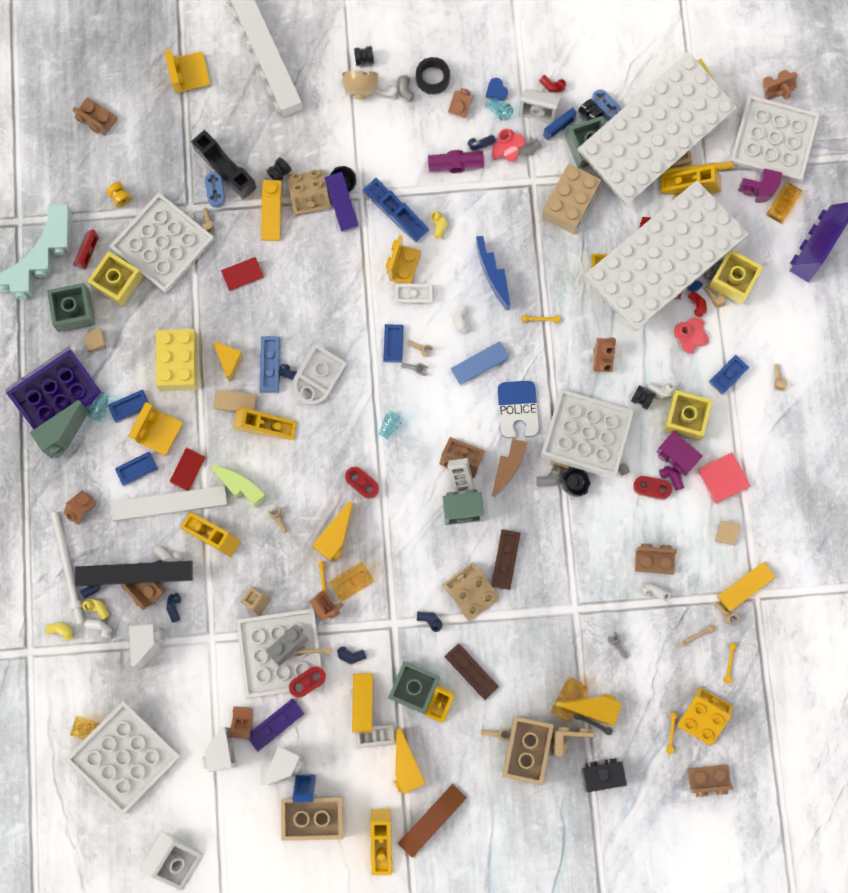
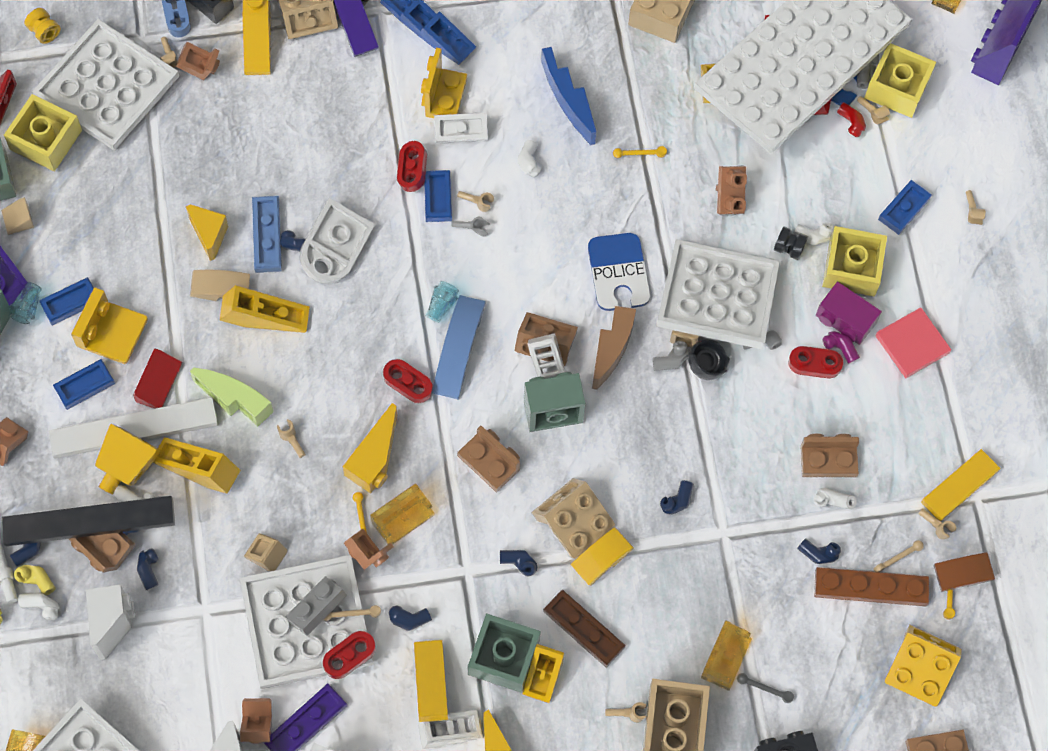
camera: 10 degrees left, 10 degrees down
(161, 527) = (123, 458): none -> yellow torso
(176, 360) = (135, 234): light yellow brick -> none
(228, 229) = (198, 61): none -> nougat bracket
(242, 273) = (220, 117): red slope -> none
(376, 321) = (412, 168): none -> red plate
(399, 458) = (458, 347): none -> medium blue slope
(415, 544) = (490, 458): none -> medium nougat bracket
(440, 223) = (490, 38): light yellow arm -> none
(480, 363) = (560, 214): medium blue tile -> none
(488, 621) = (601, 556): none -> yellow slope
(505, 559) = (619, 472): reddish brown tile -> none
(545, 585) = (678, 502): none -> dark blue arm
(559, 745) = (728, 699): tan bracket -> none
(595, 707) = (770, 663): yellow slope -> none
(617, 644) = (786, 574): light grey hand -> none
(641, 630) = (820, 555): none -> dark blue arm
(670, 750) = (878, 716): yellow hinge -> none
(675, 656) = (871, 587): none -> dark orange plate
(694, 334) = (850, 159): coral plate -> none
(727, 532) = (926, 413): tan slope -> none
(741, 652) = (964, 571): none -> dark orange slope

